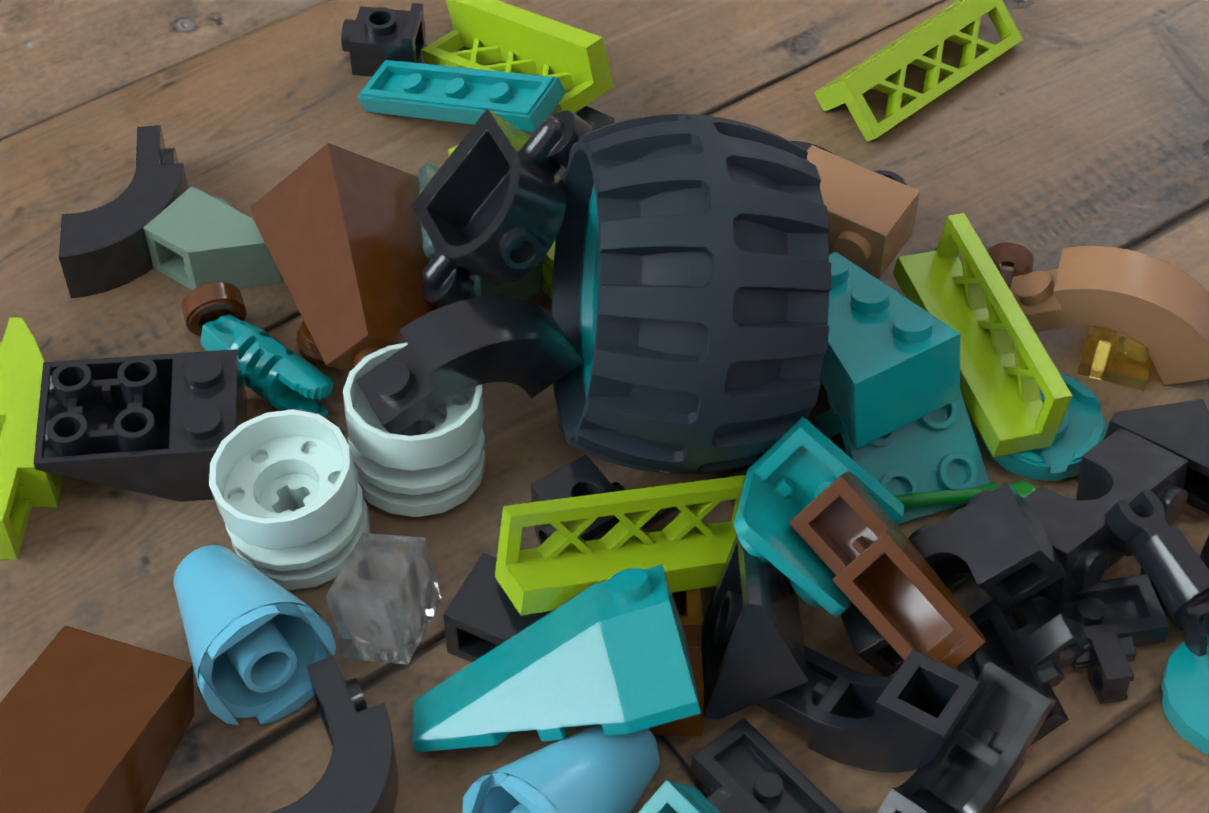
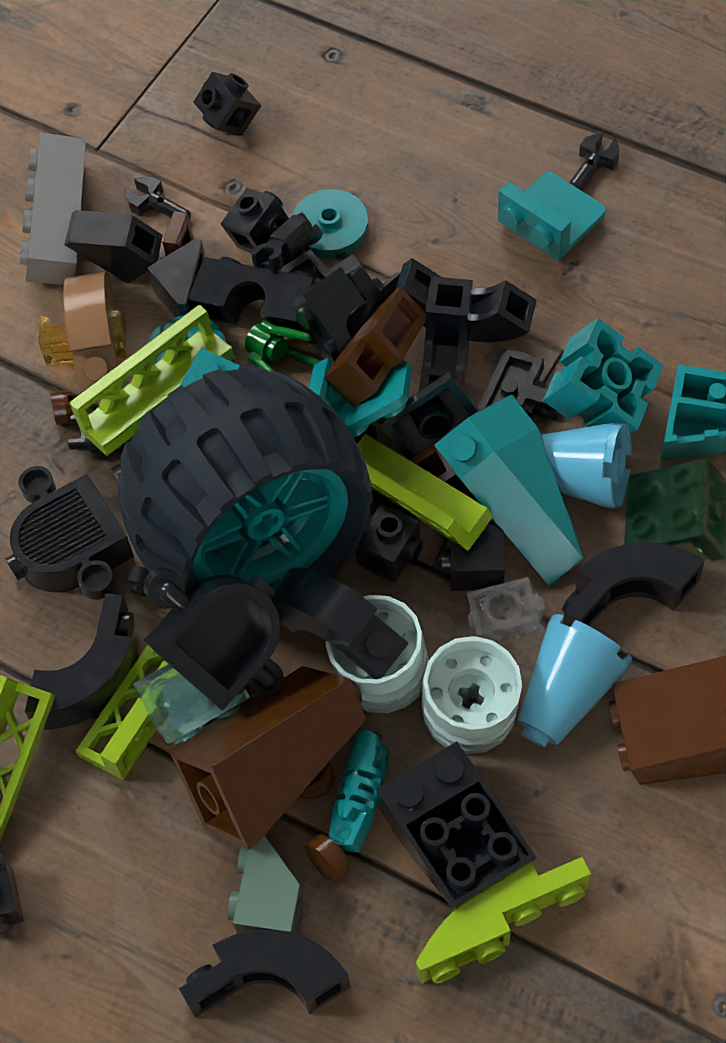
camera: 110 degrees left, 10 degrees up
(460, 94) = (48, 791): teal tile -> none
(866, 211) = (85, 483): medium nougat brick -> none

